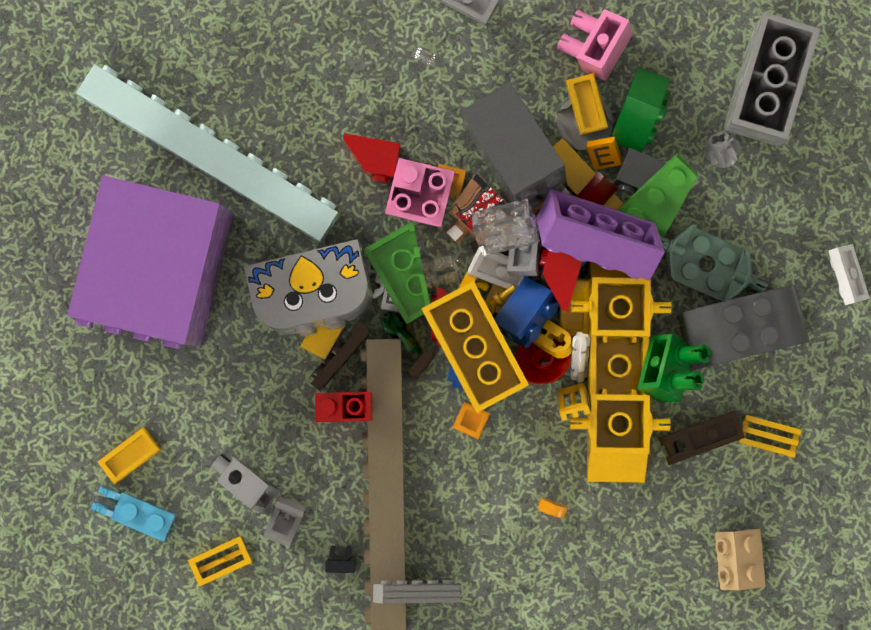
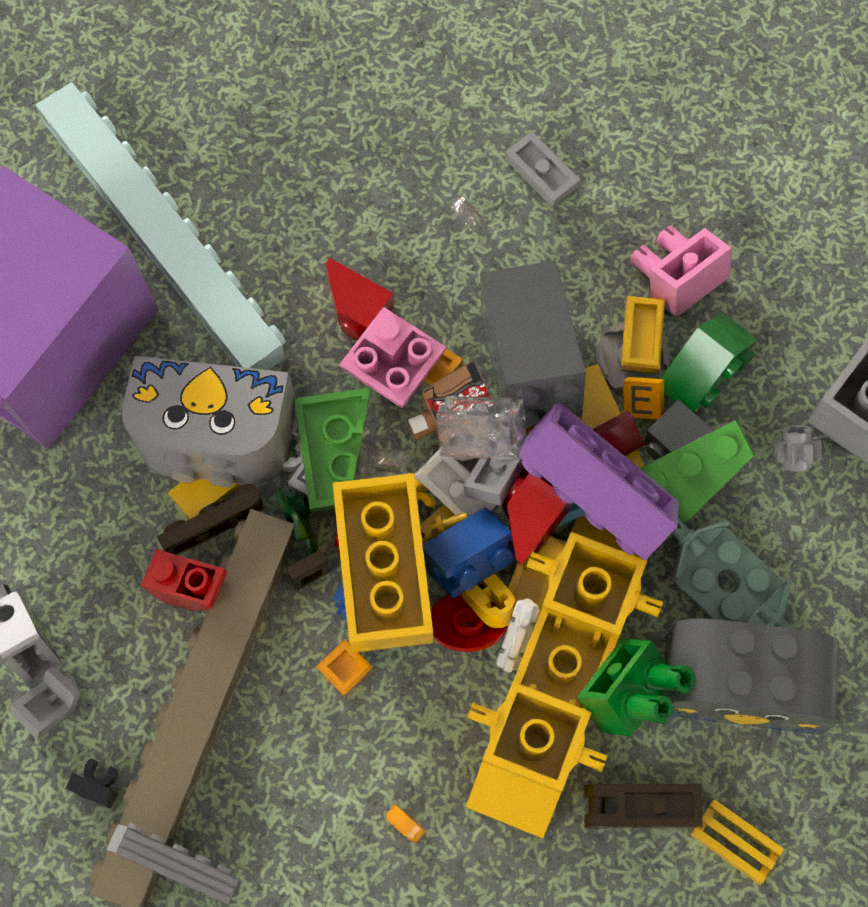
camera: 20 degrees right, 15 degrees down
(574, 407) = (483, 692): yellow tile -> none

